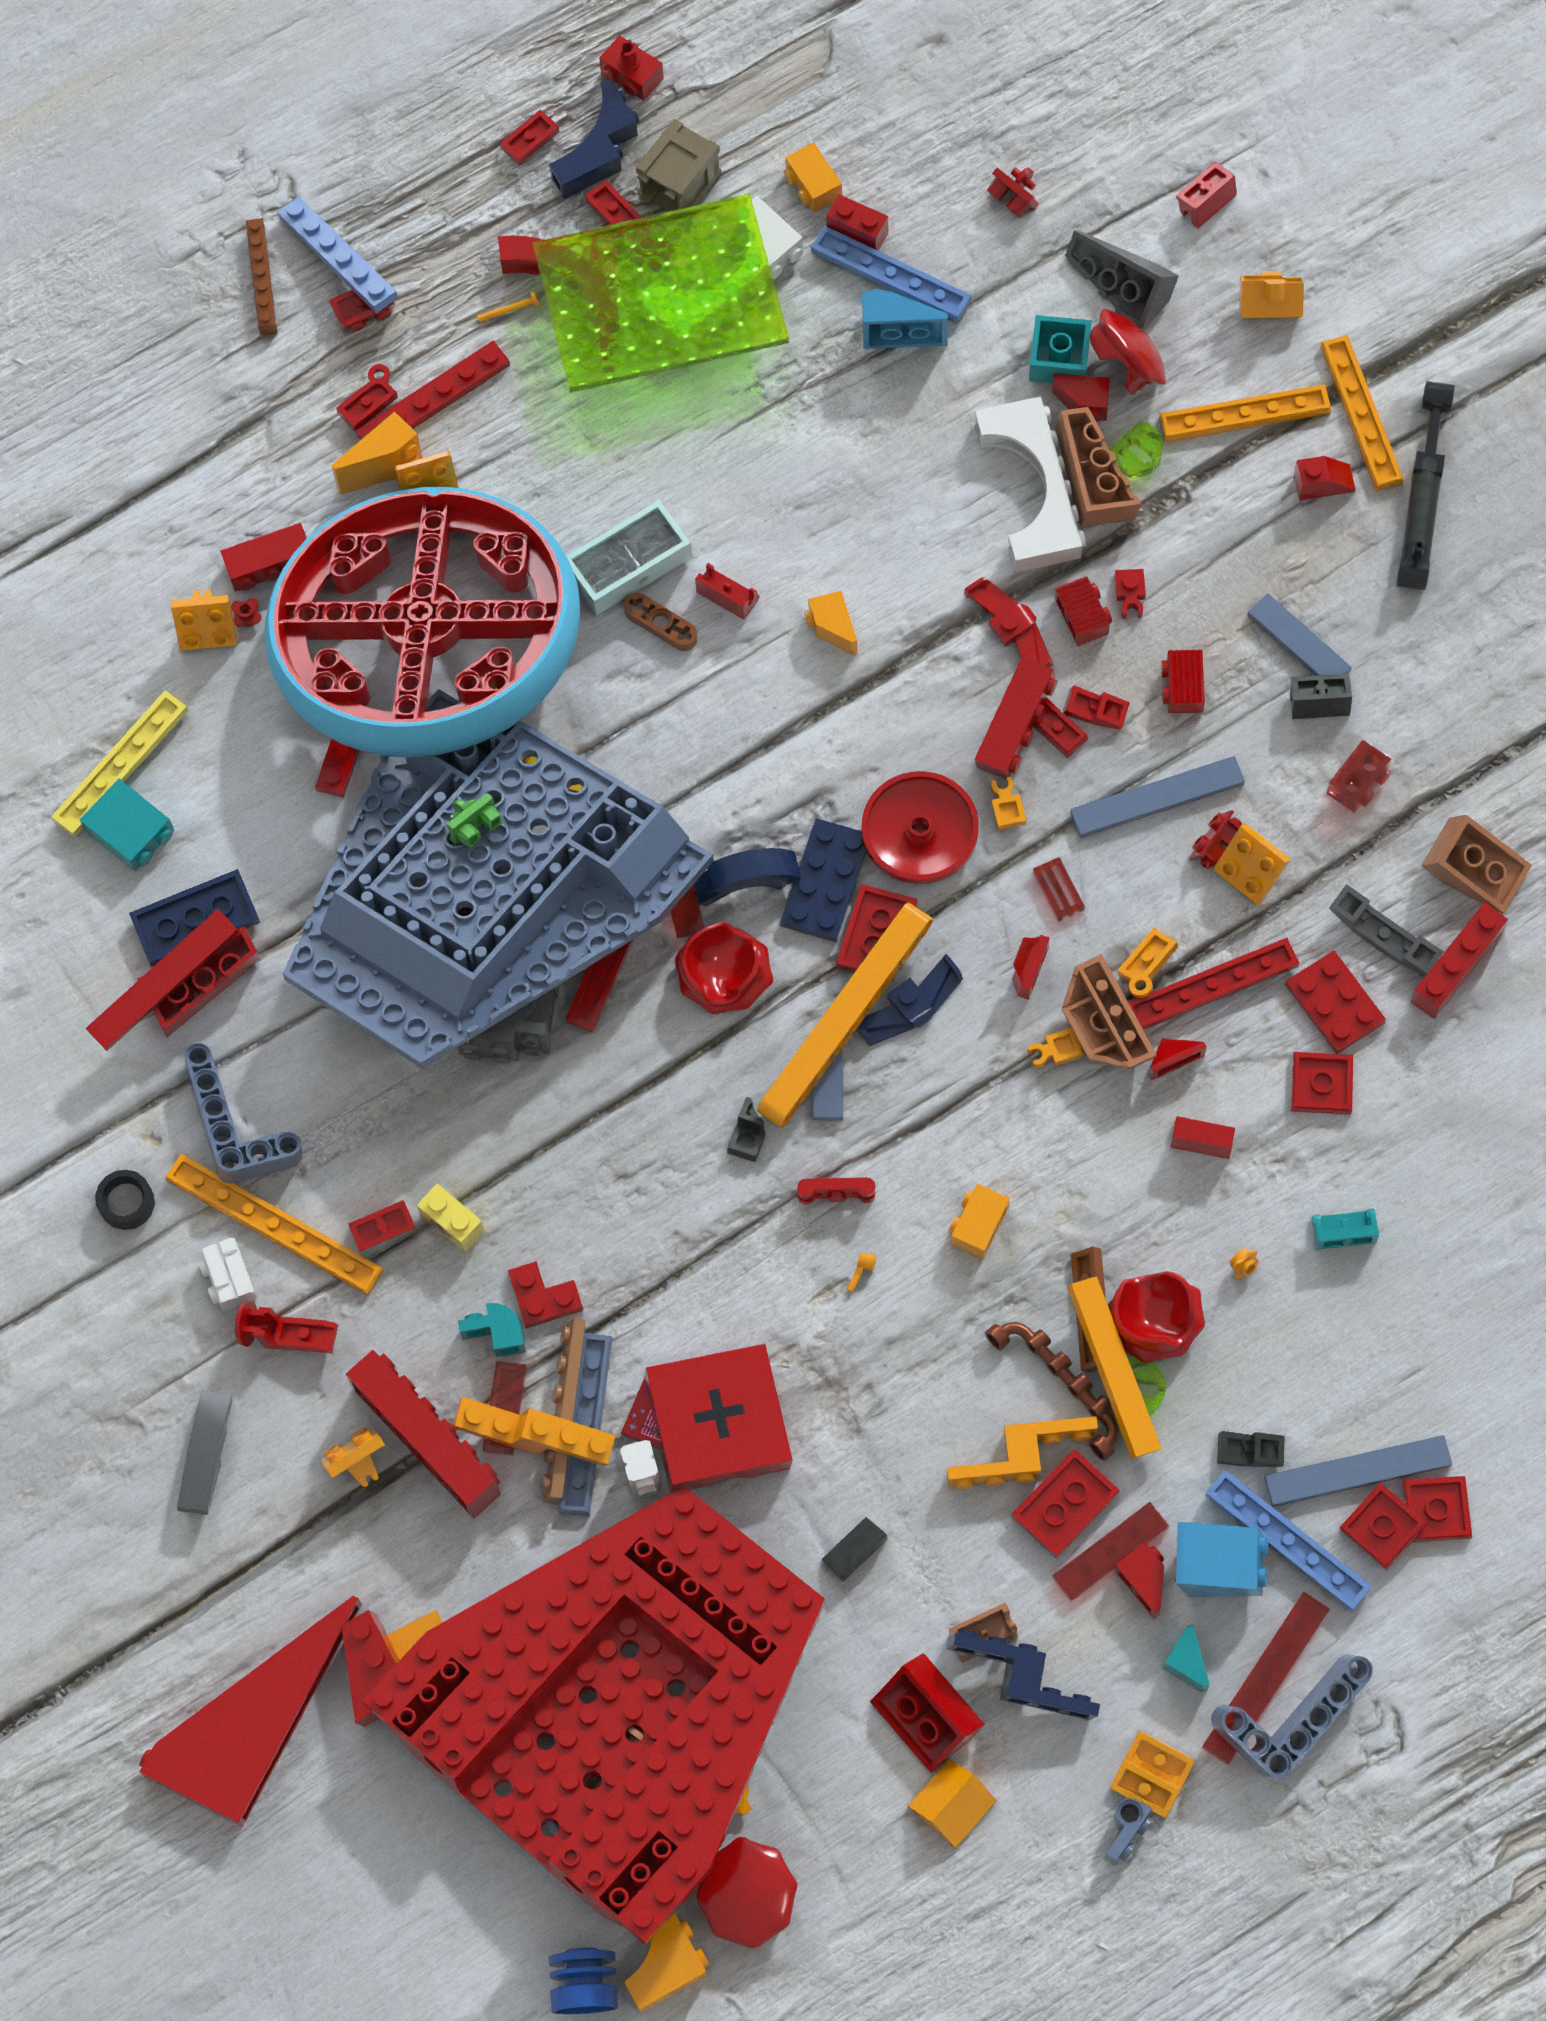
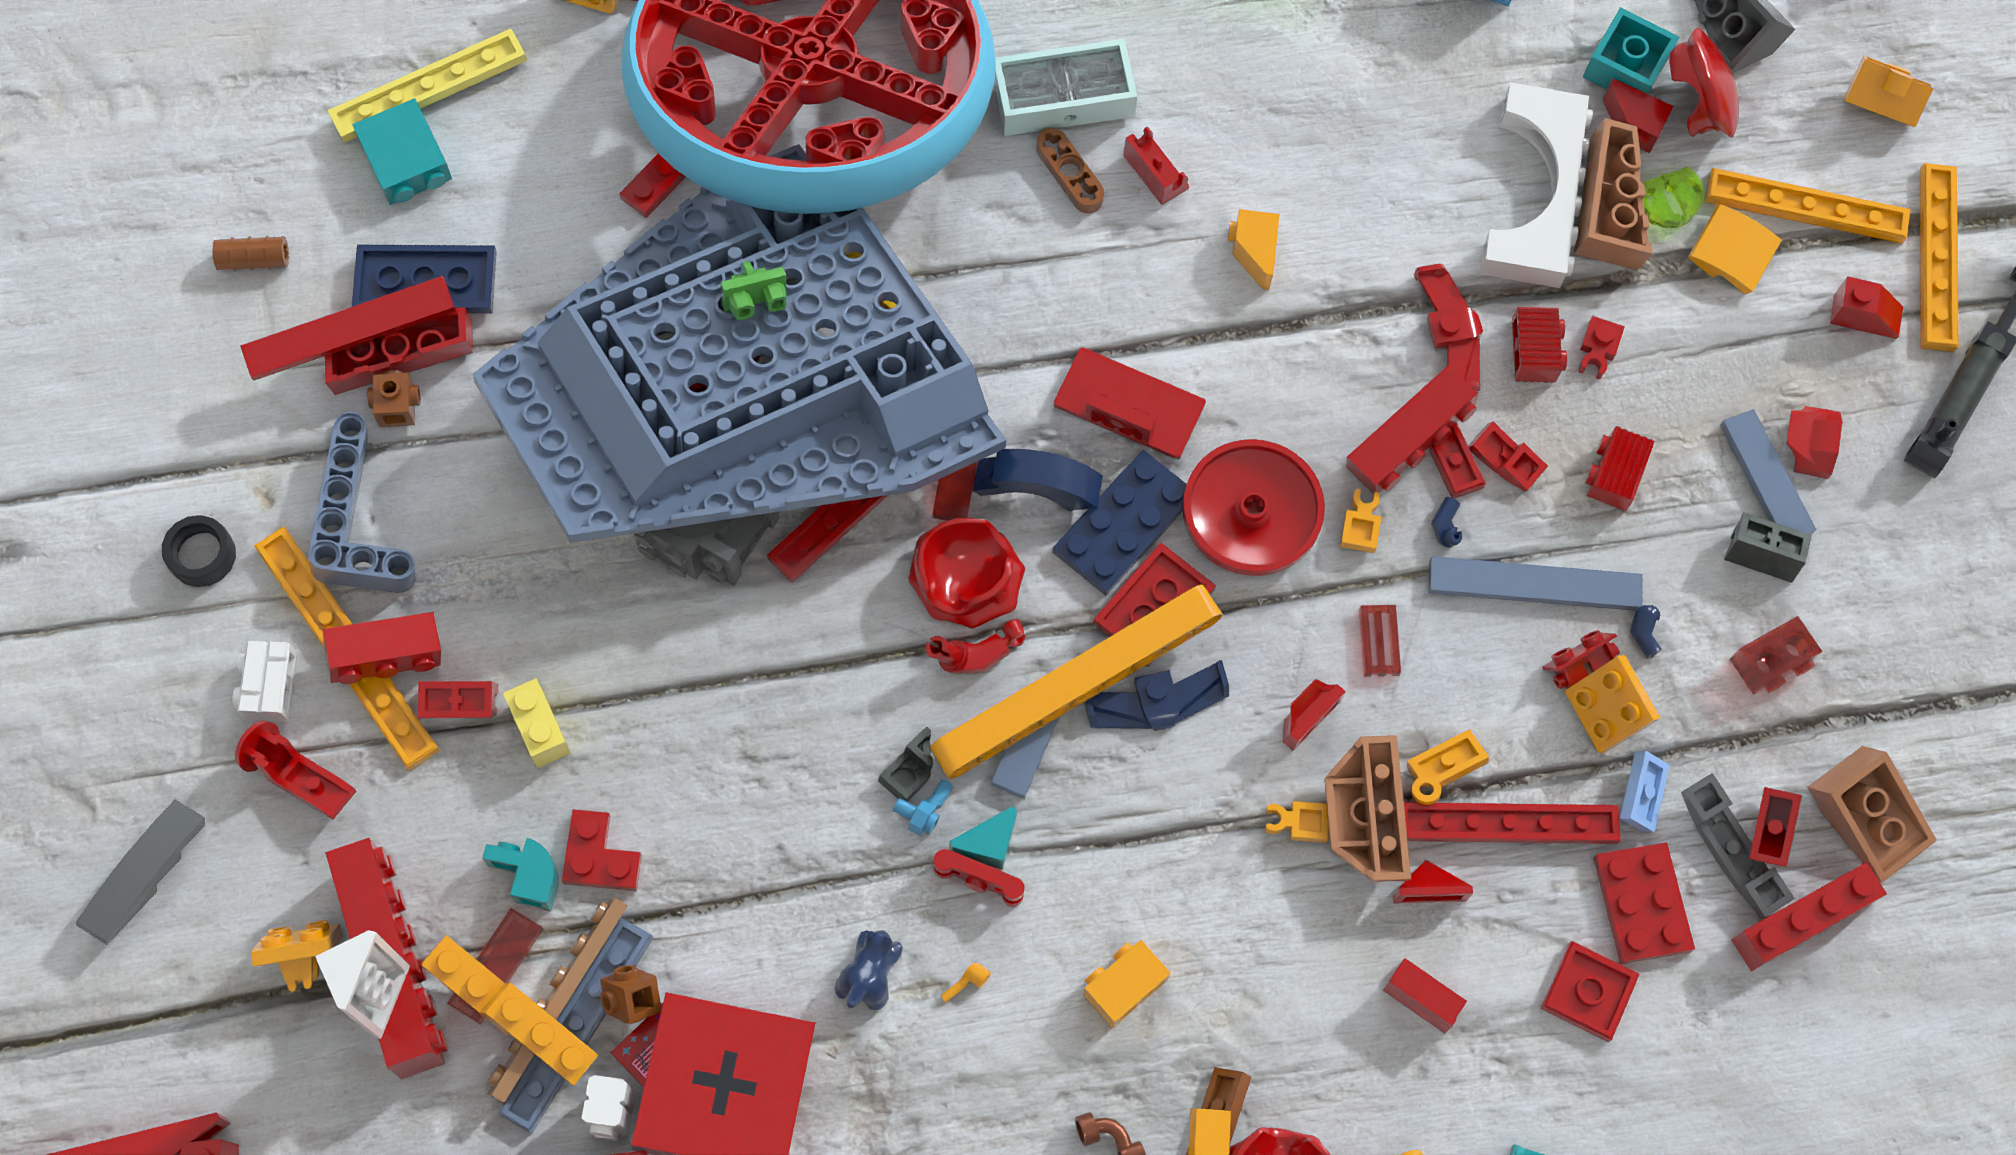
camera: 15 degrees right, 0 degrees up
(47, 954) = (250, 253): none -> dark orange axle
(219, 1020) = (394, 399): none -> dark orange brick
(306, 1211) = (382, 648): none -> red brick
(430, 1442) = (364, 979): none -> white slope
(618, 1382) = (630, 994): none -> dark orange brick
(755, 1032) = (969, 658): none -> red arm
(774, 1164) = (923, 816): none -> dark azure piece
(785, 1293) = (867, 975): none -> dark blue animal
(789, 786) = (1129, 403): none -> red bracket
(831, 1160) = (989, 840): none -> teal slope
(1069, 781) = (1442, 523): none -> dark blue arm
(1202, 471) = (1734, 248): none -> light orange slope
(1251, 797) = (1643, 627): none -> dark blue arm
(1302, 919) = (1644, 791): none -> light blue plate
(1323, 598) = (1814, 440): none -> red slope
(1408, 904) = (1775, 826): none -> red slope

